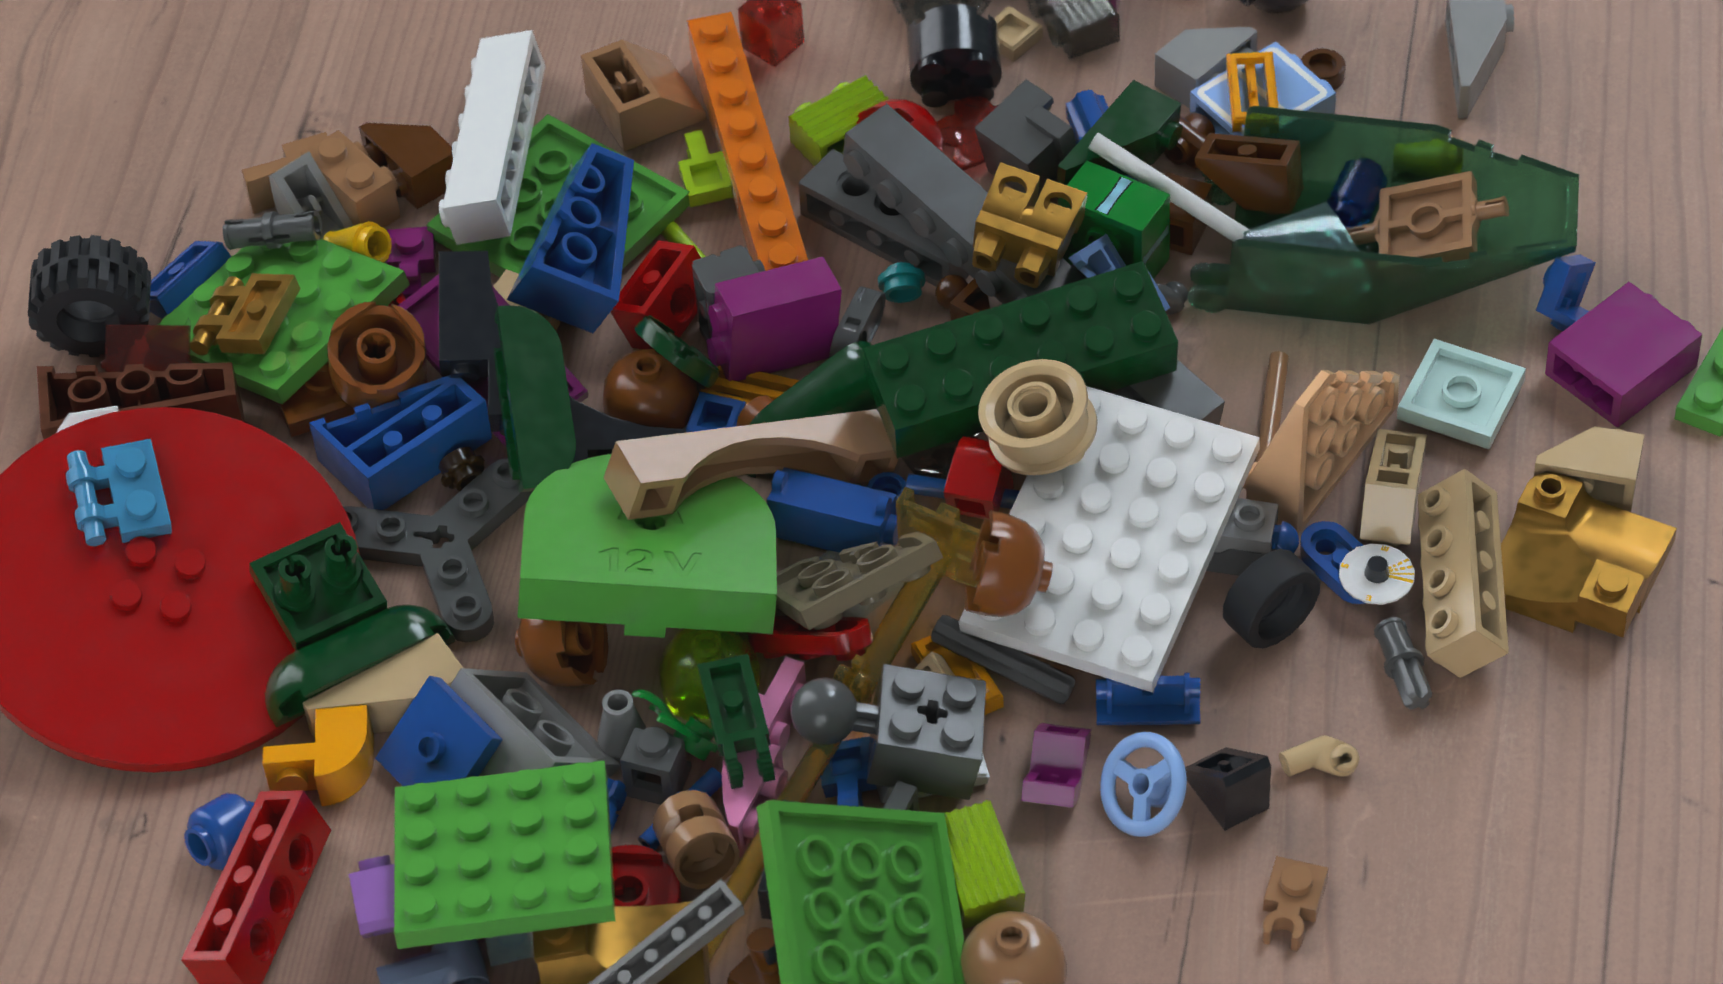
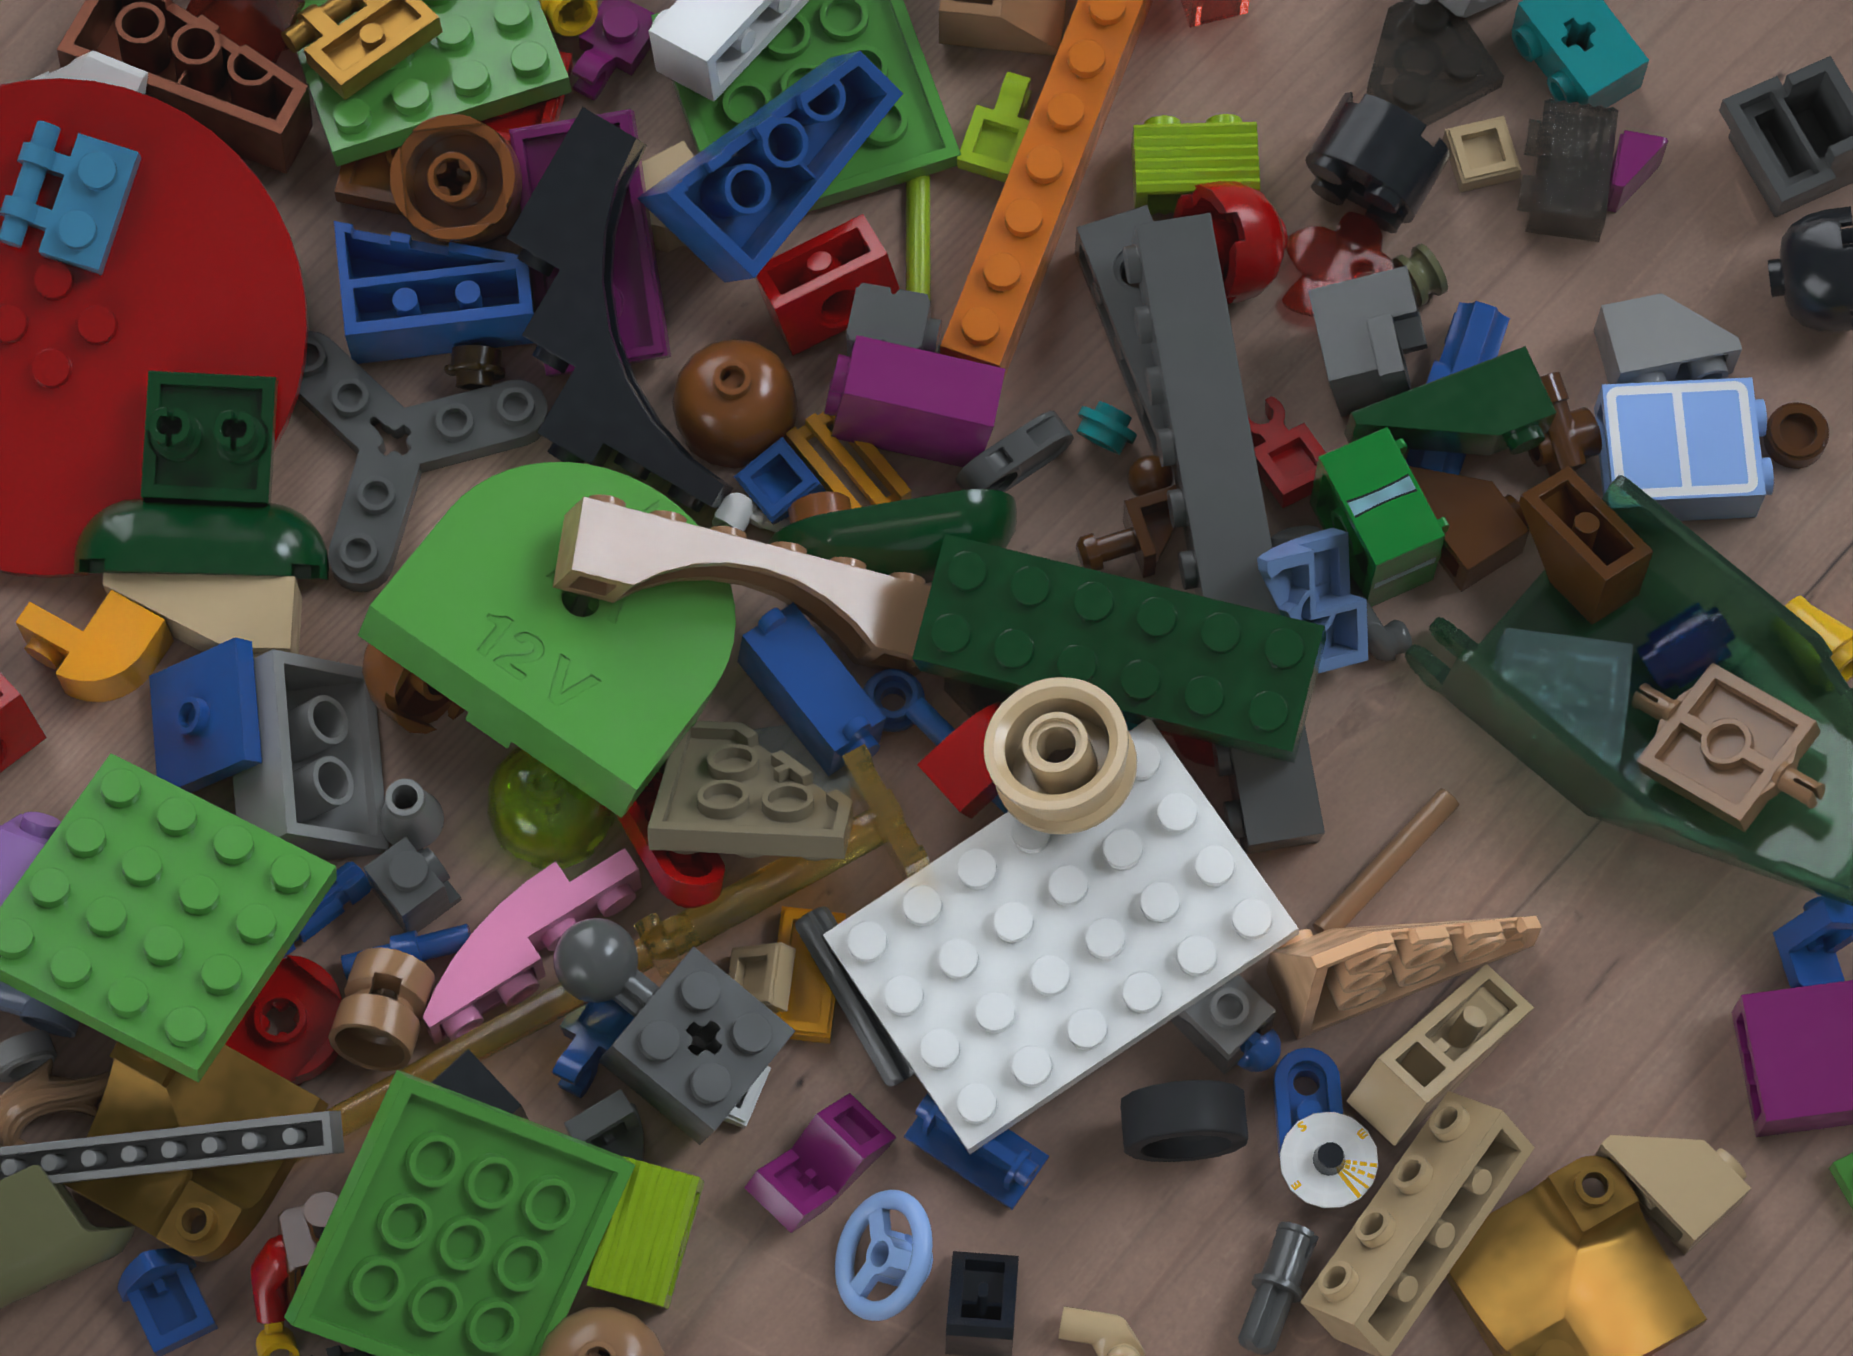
camera: 30 degrees right, 20 degrees up
(533, 396) = (568, 359): dark green brick -> none
(677, 351) = (778, 380): dark green tile -> none
(695, 733) = (463, 854): green plate -> none
(736, 715) = (512, 897): dark green hinge -> none
(1006, 567) = (892, 925): dark orange cylinder -> none
(1026, 228) = (1232, 479): pearl gold hips -> none
(1178, 195) = (1463, 518): white bar -> none
(1249, 59) = (1642, 475): light orange tile -> none
(1461, 393) = (1607, 984): light aqua plate -> none

